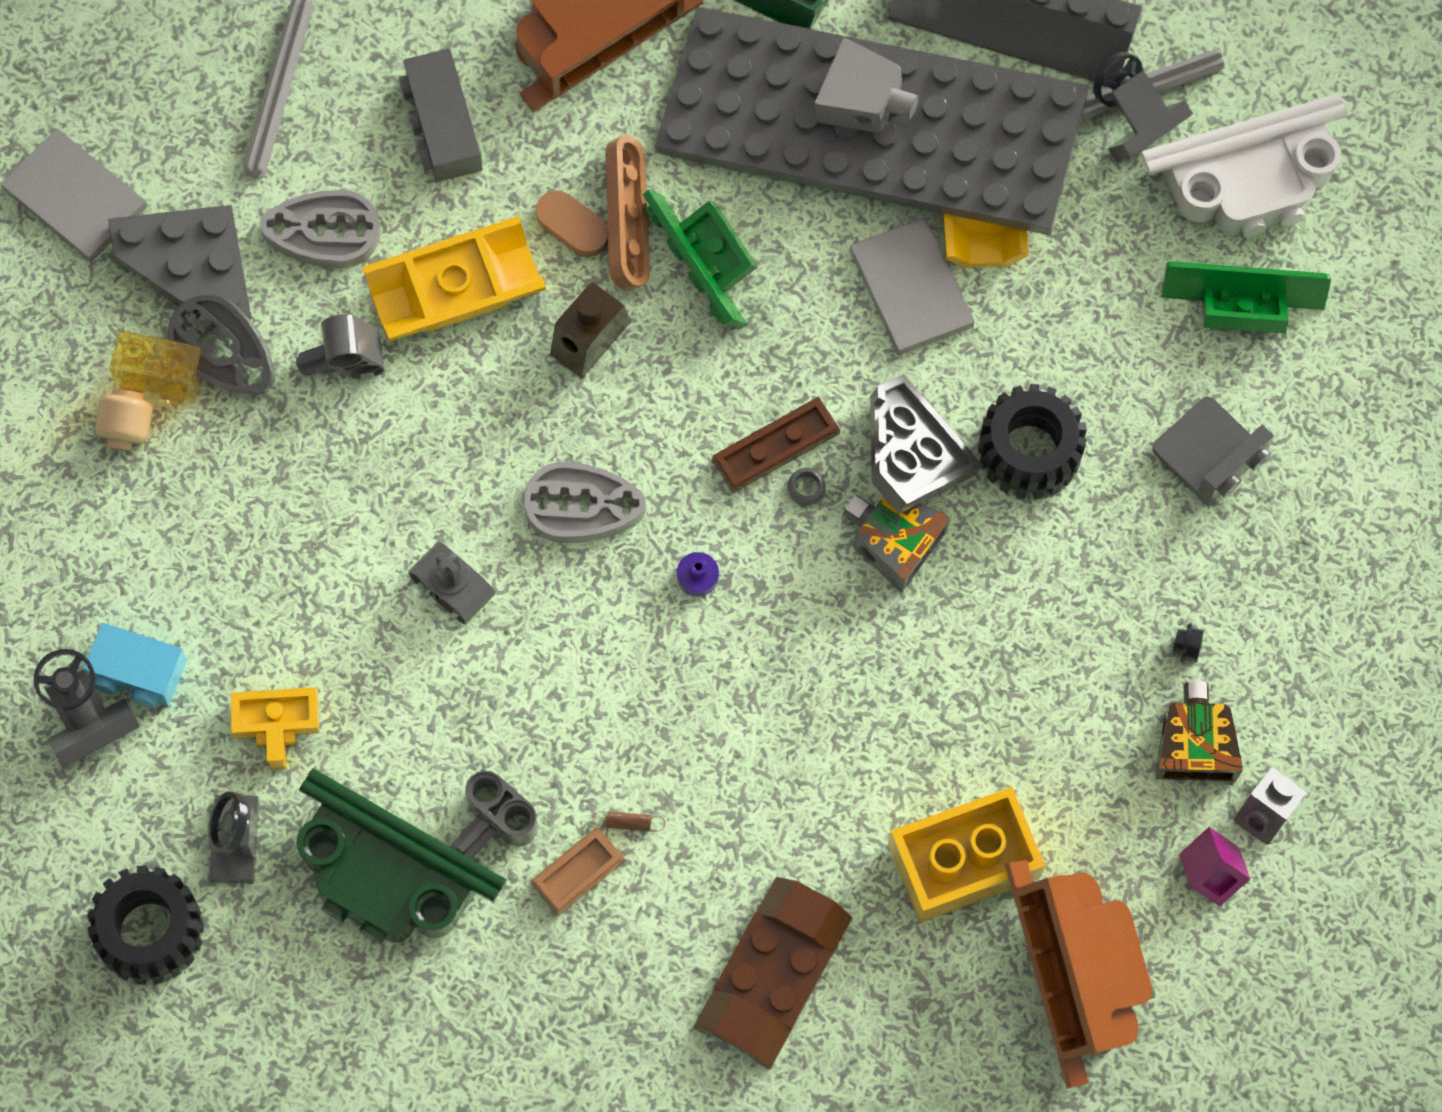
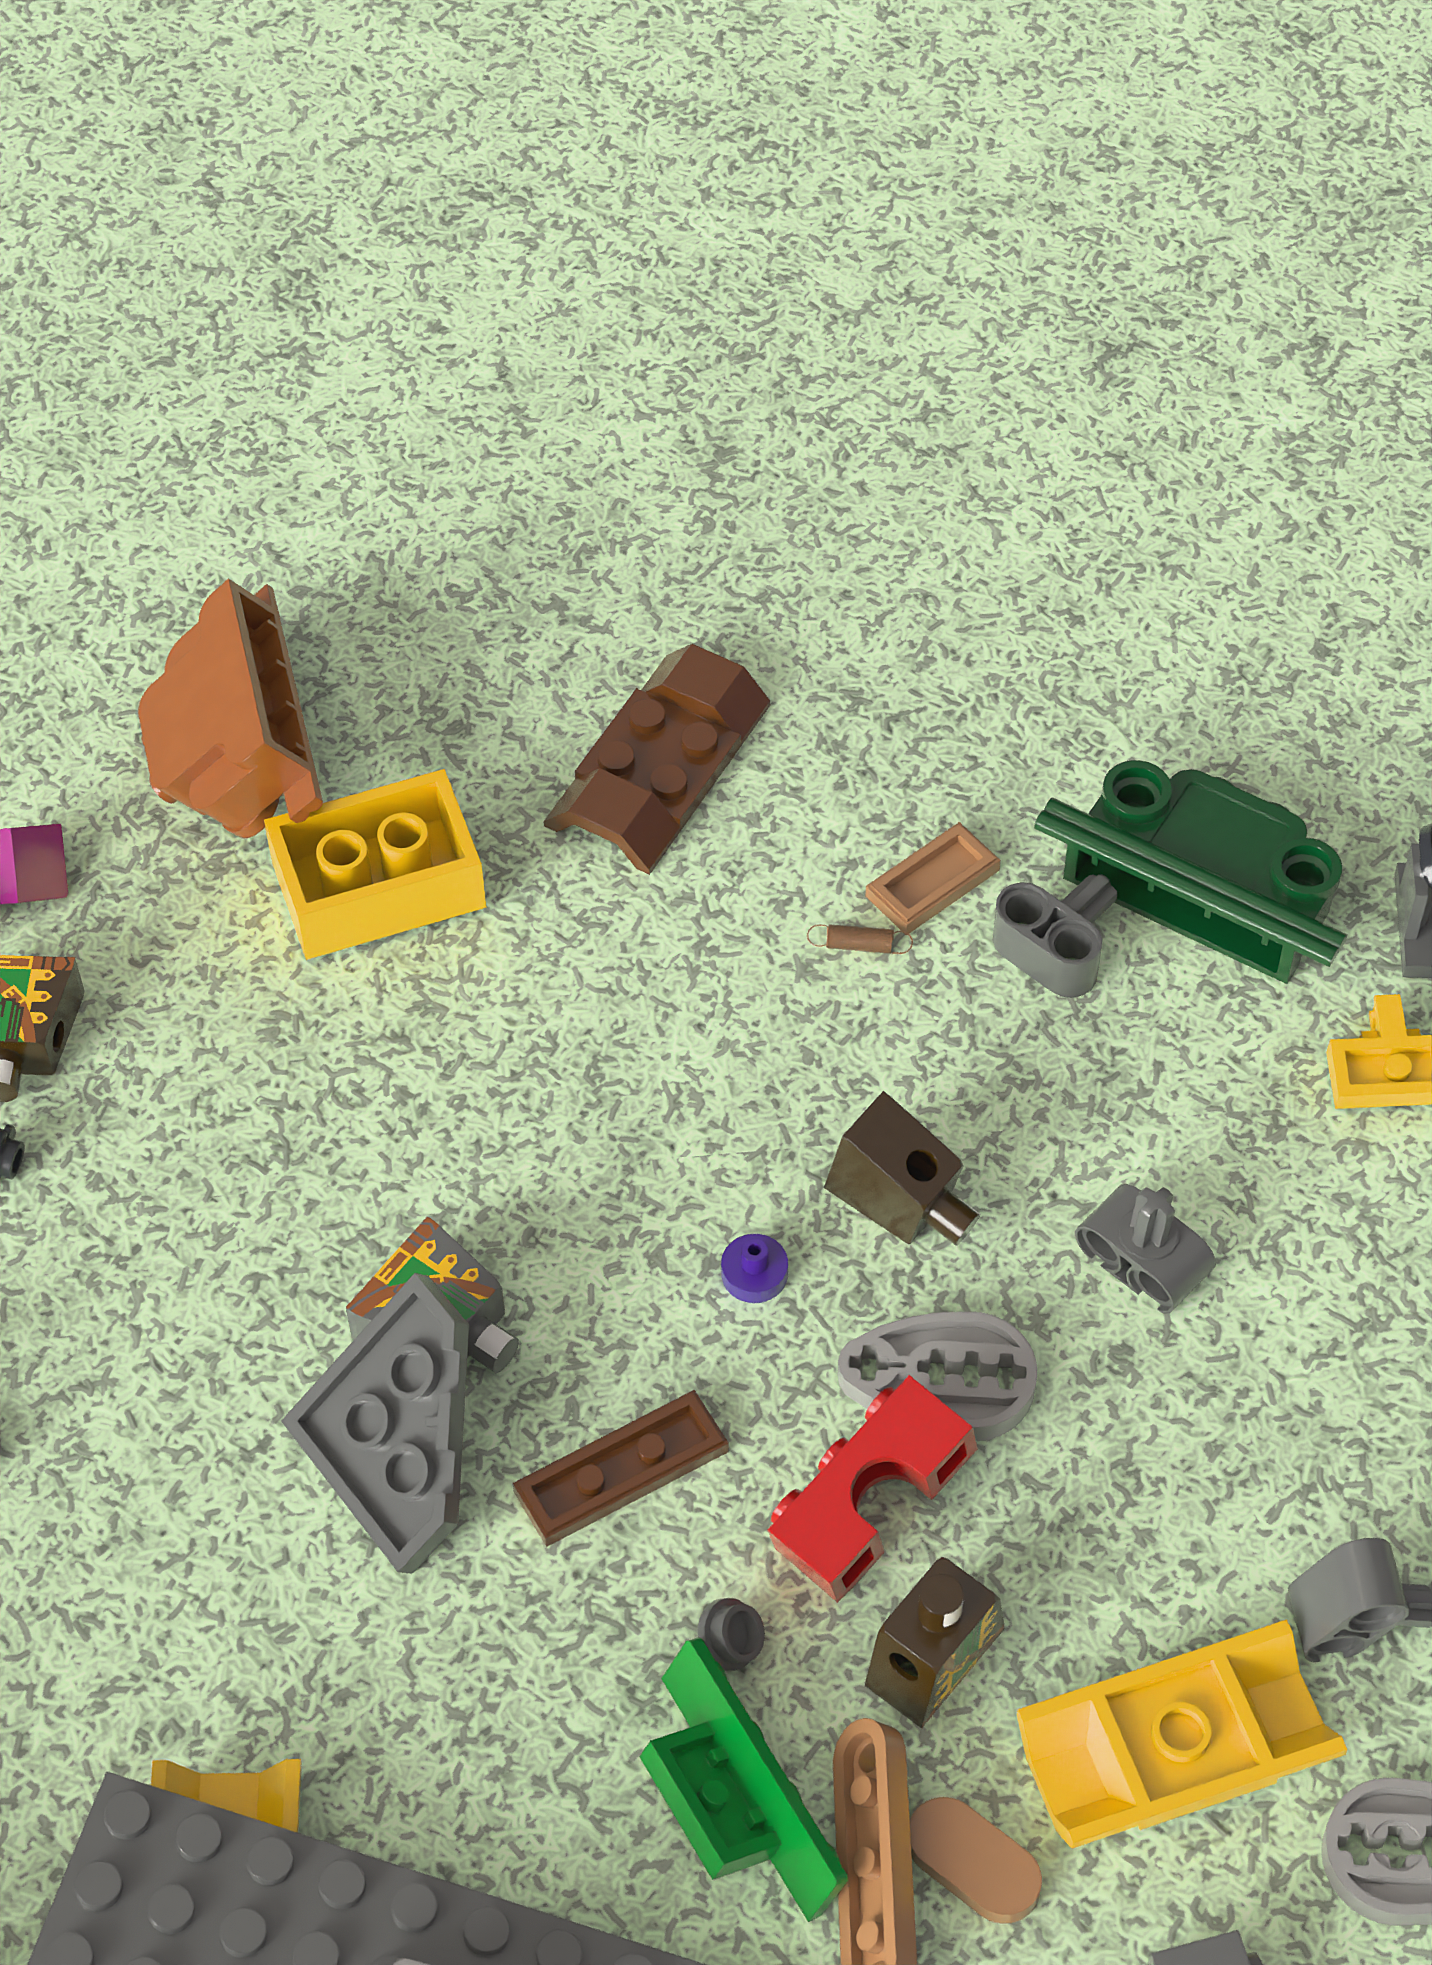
camera: 175 degrees left, 15 degrees down
(605, 438) = (905, 1439): none -> arch
(607, 618) = (900, 1175): none -> dark brown torso
(708, 338) = (731, 1632): none -> dark grey plate
(804, 499) = (579, 1421): dark grey piece -> none
(911, 286) = (368, 1737): light grey tile -> none
(1040, 411) = (206, 1488): black tyre -> none

